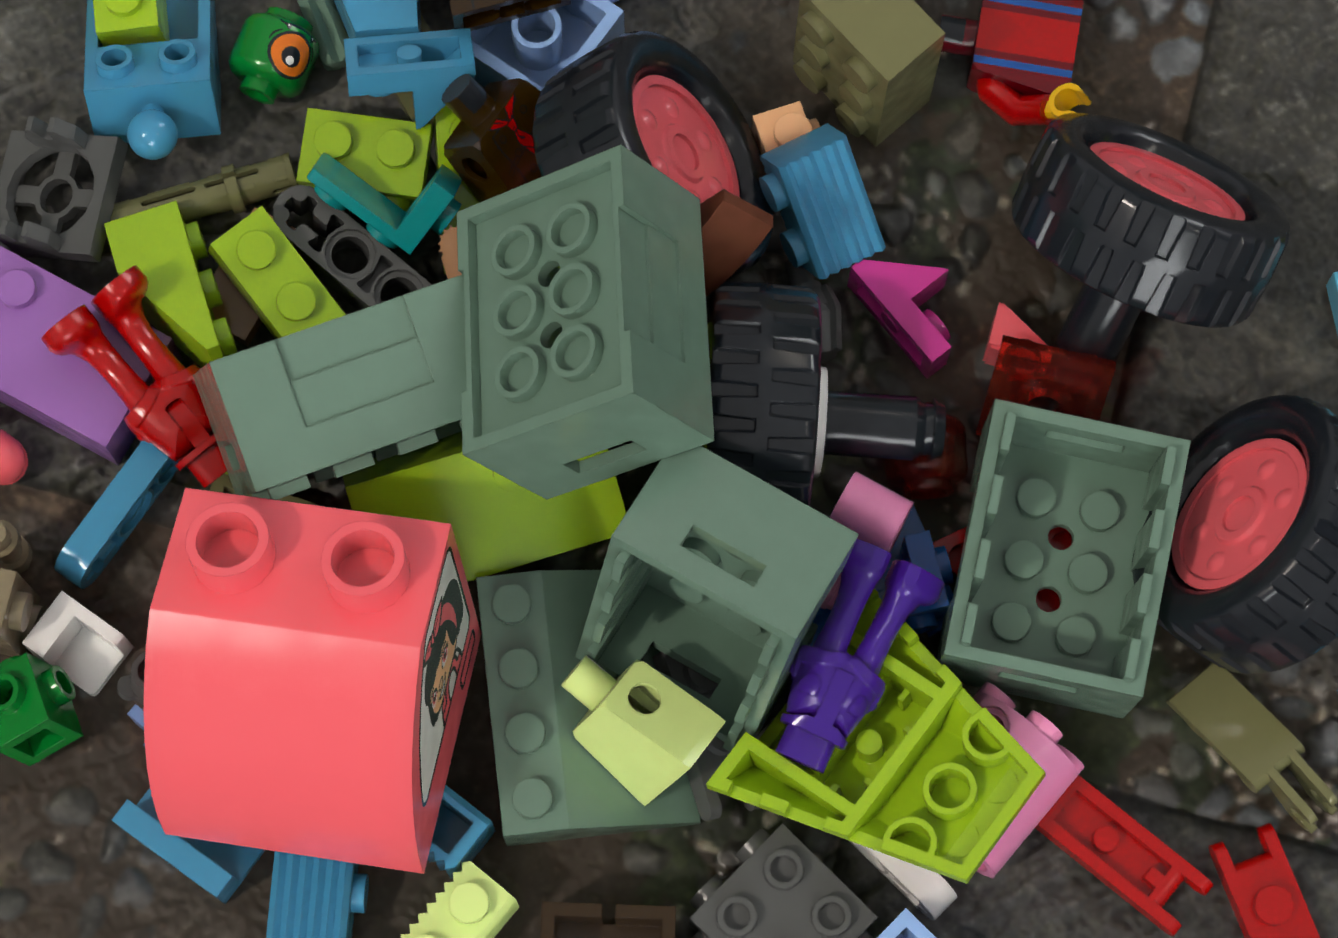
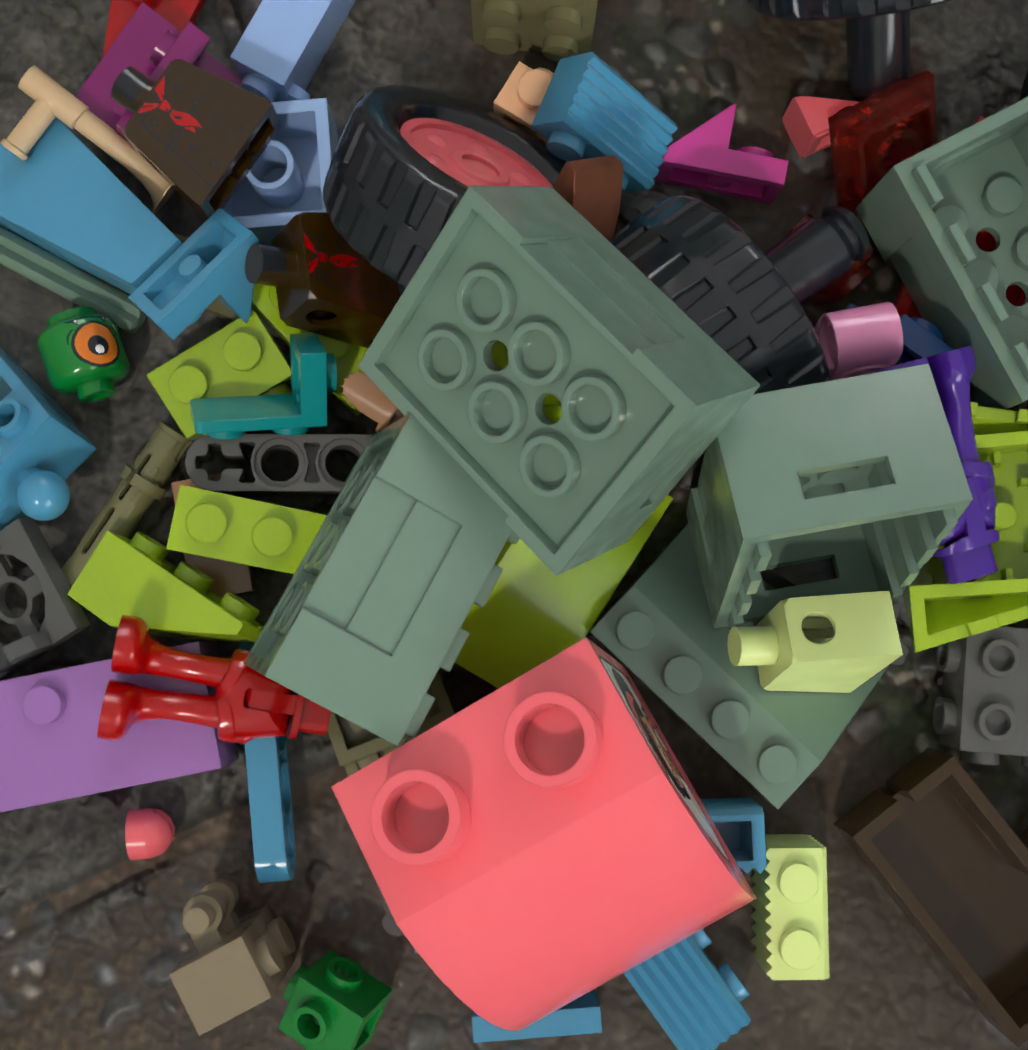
camera: 40 degrees left, 10 degrees up
(78, 644) = (326, 921): white panel -> none

